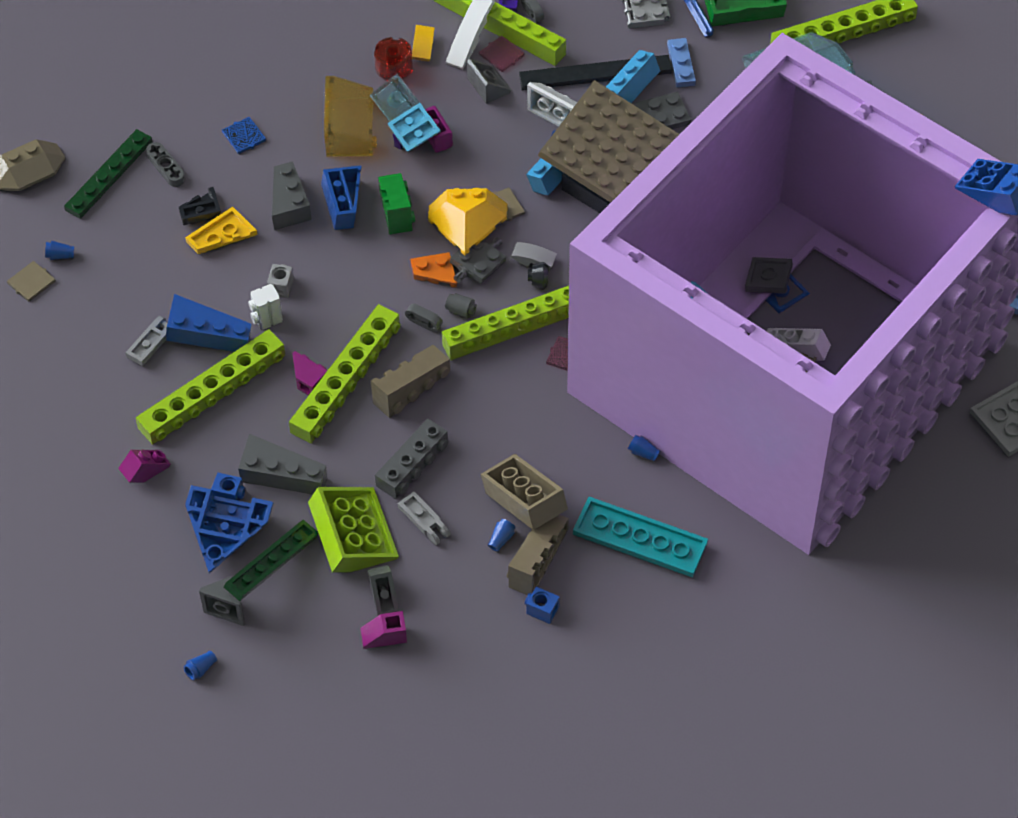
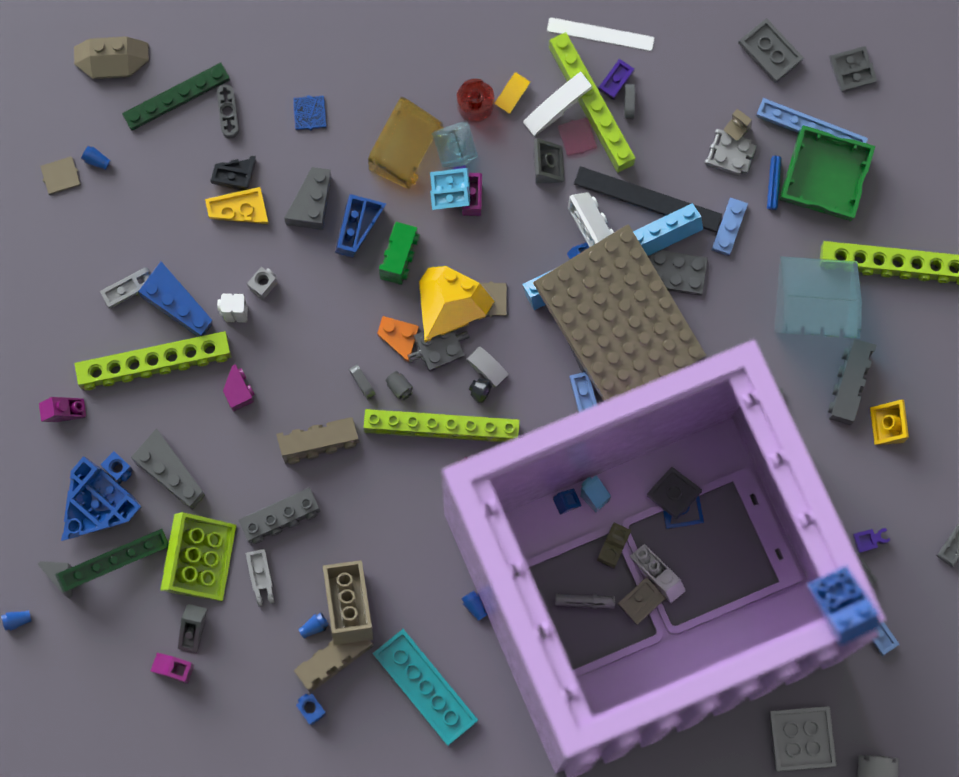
camera: 25 degrees right, 20 degrees up
(375, 331) = (289, 384): lime brick -> none

